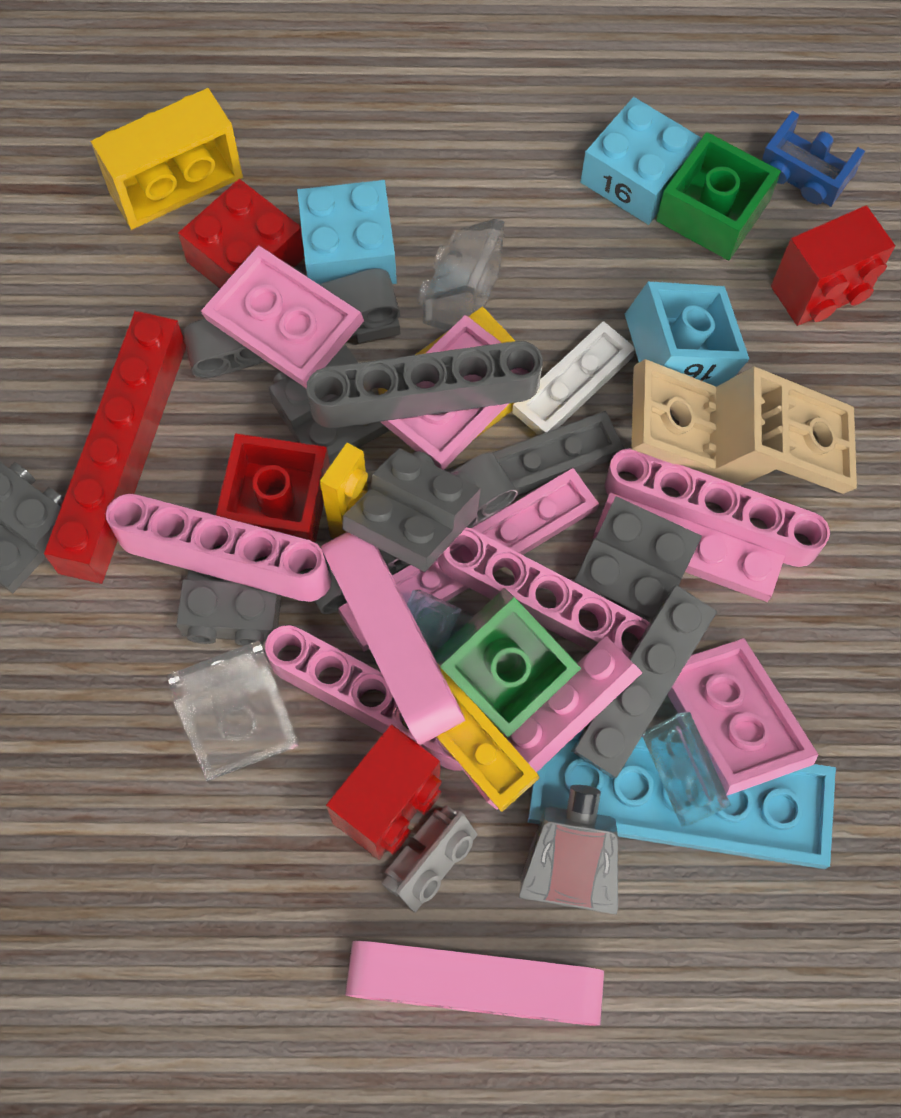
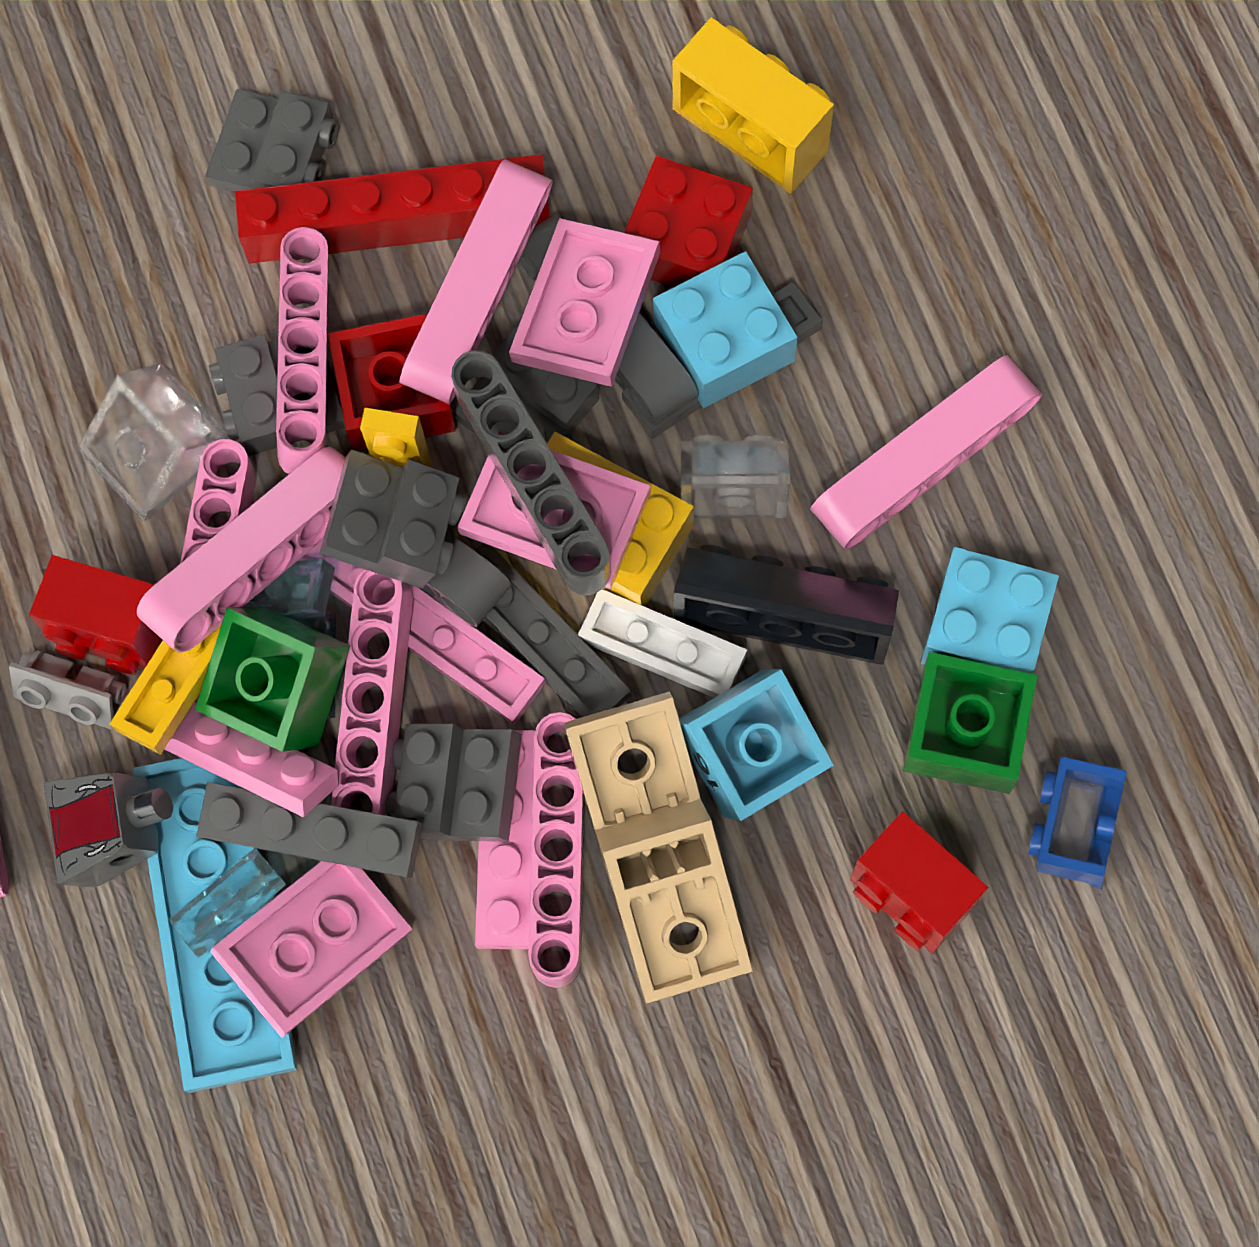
camera: 75 degrees right, 5 degrees up
(231, 383) = (476, 278): none -> bright pink beam
(495, 156) = (926, 452): none -> bright pink beam
(581, 277) = (785, 604): none -> black slope

